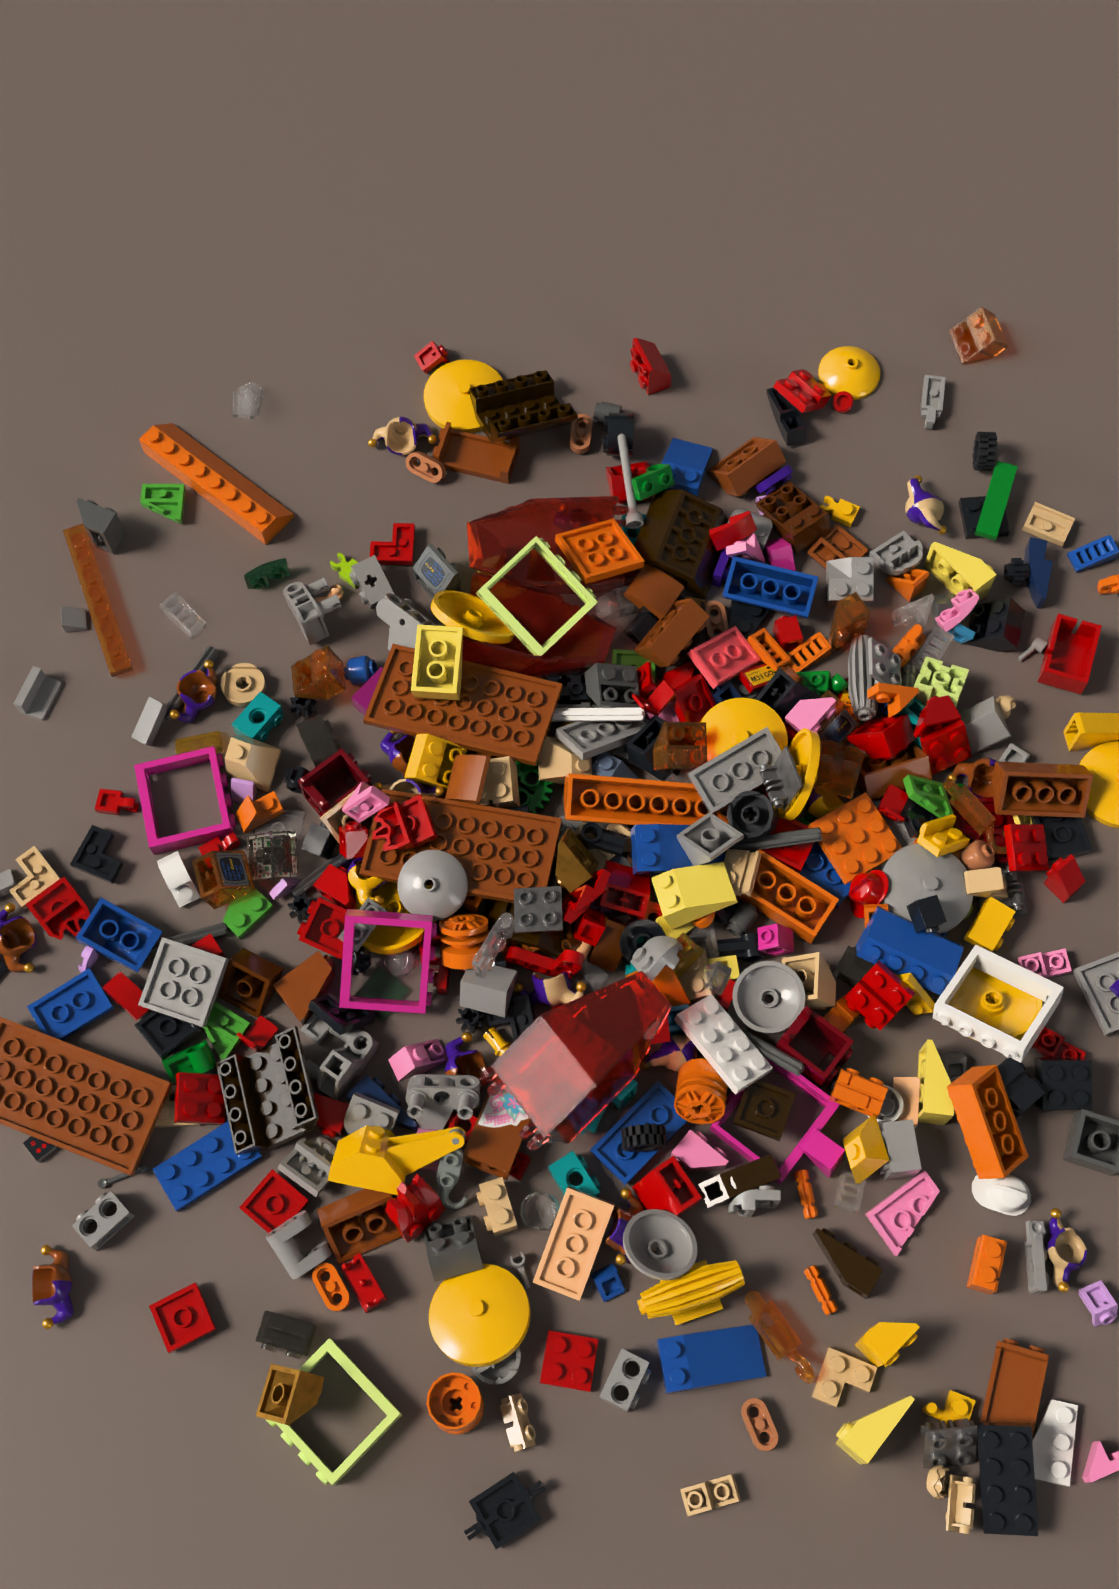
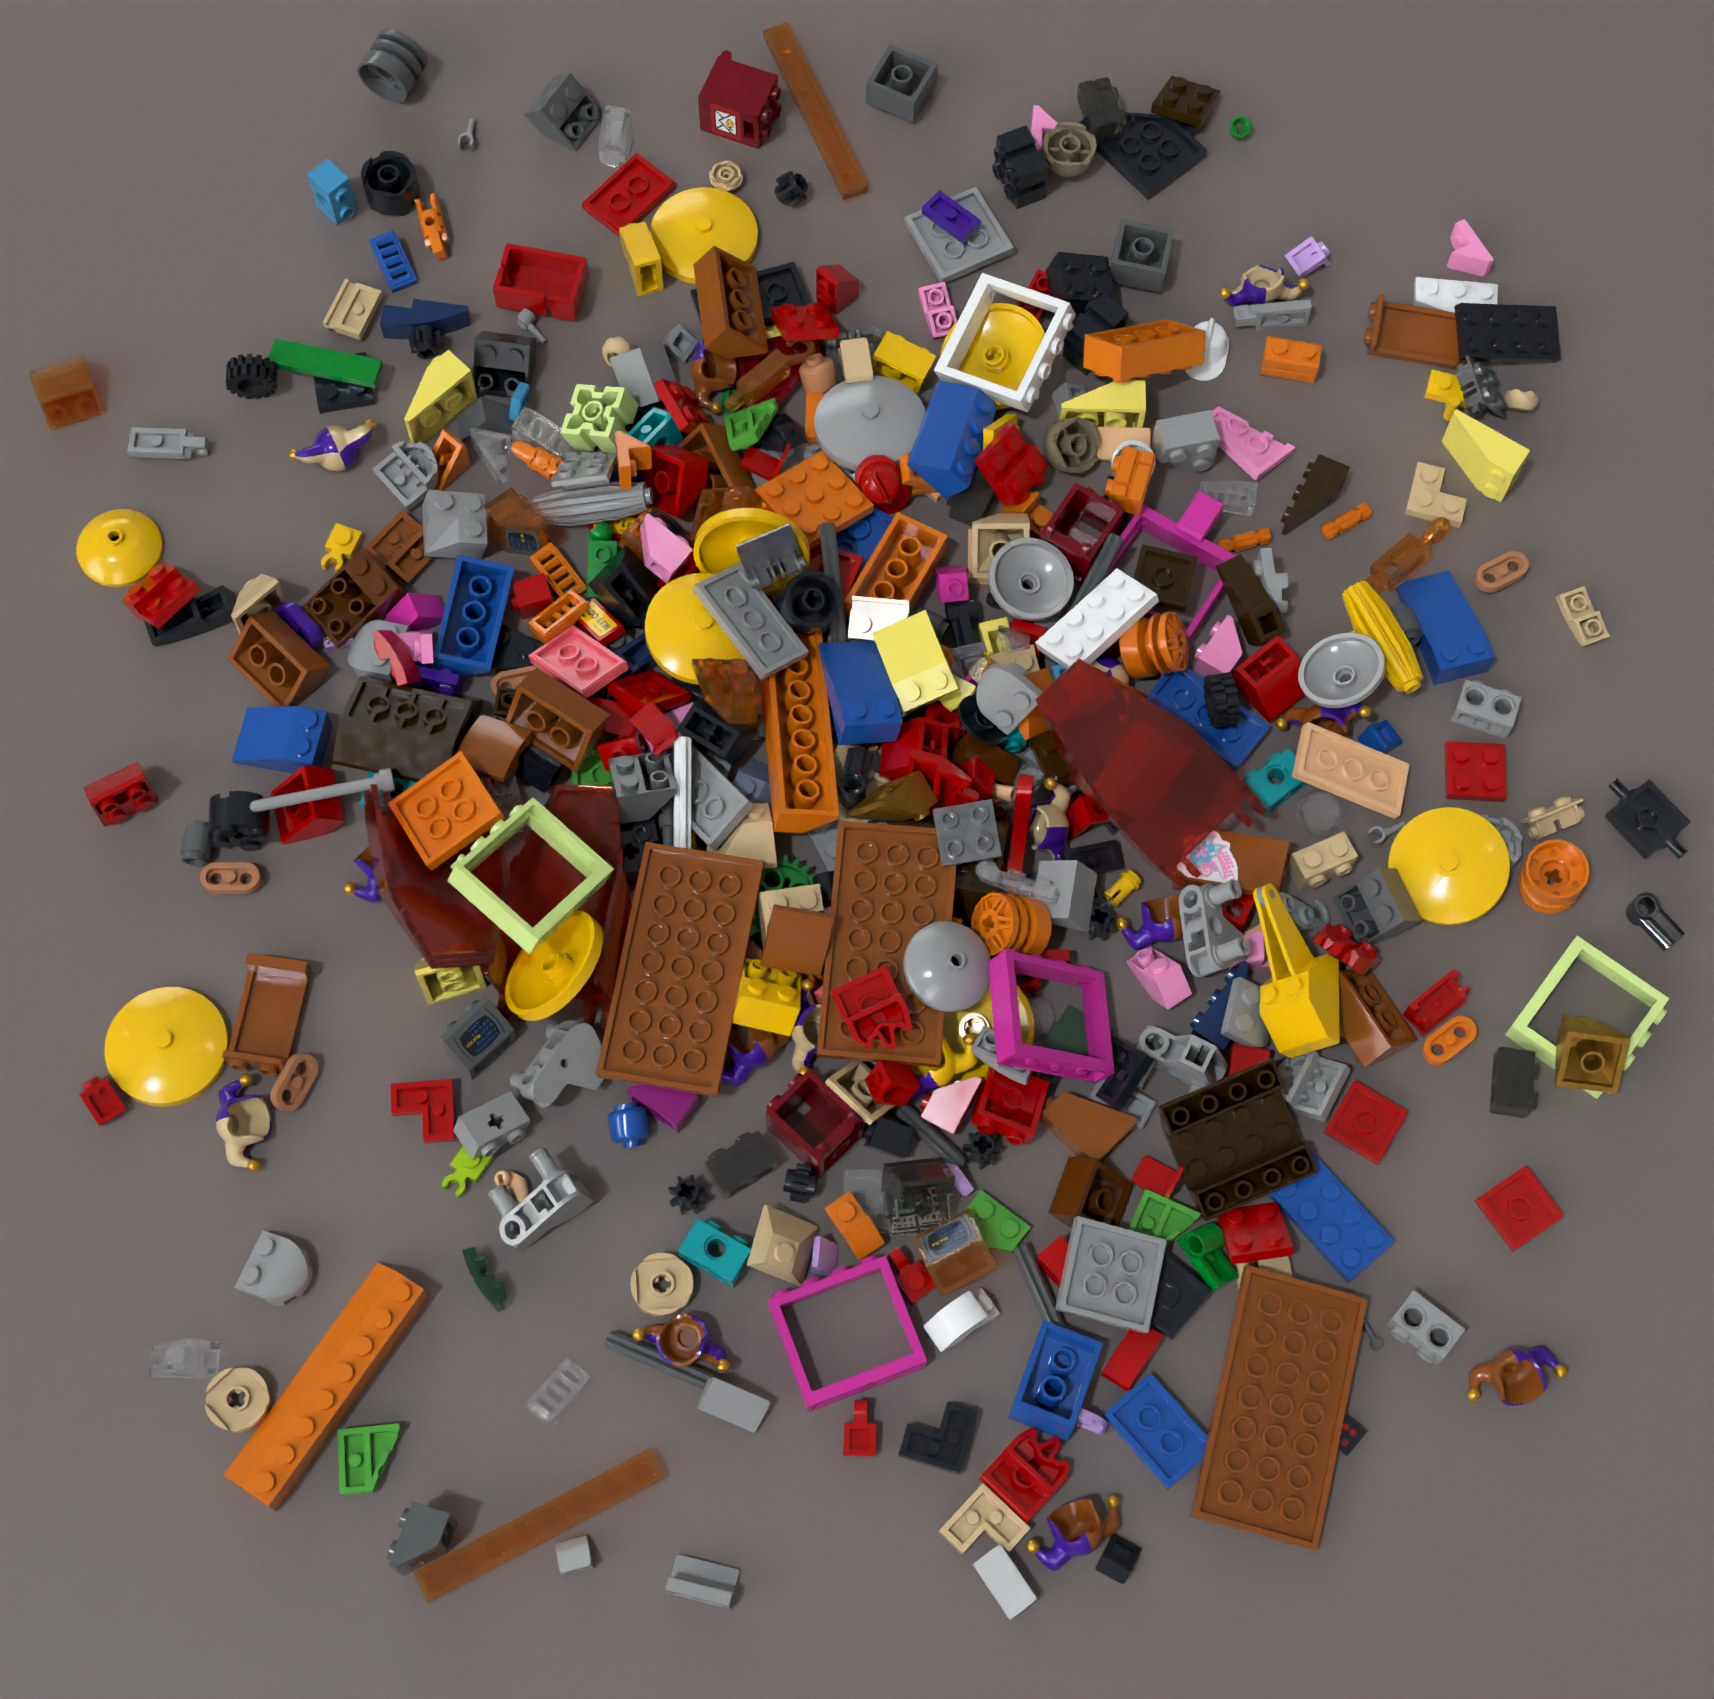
camera: 100 degrees left, 0 degrees up
(198, 742) = (758, 1332): clear yellow slope -> none
(217, 441) = (219, 1399): none -> tan plate
(289, 1252) = (1421, 1091): light grey connector -> none
(298, 453) = (275, 1270): none -> light grey slope
(318, 675) = (647, 1175): clear orange slope -> none
(365, 802) = (844, 1064): bright pink slope -> none
(406, 1495) = (1656, 922): none -> black piece
(437, 662) = (638, 990): light yellow slope -> none
(519, 407) = (202, 955): dark brown slope -> none
(653, 481) = (321, 754): green plate -> none
(707, 839) = (849, 646): light grey slope -> none
(708, 1317) = (1408, 622): none -> dark grey brick
(794, 450) = (257, 597): none -> tan slope
(842, 402) = (171, 550): red tile -> none
(865, 1149) = (1190, 472): yellow slope -> none
(884, 1340) = (1393, 447): yellow slope -> none
(900, 1053) = (1072, 445): none -> dark tan cylinder
(926, 914) = (913, 410): black brick -> none
(935, 715) = (650, 412): red slope -> none
(940, 836) = (805, 406): yellow bracket -> none
(958, 1517) = (1550, 380): tan hinge -> none
(963, 604) = (492, 391): bright pink slope -> none

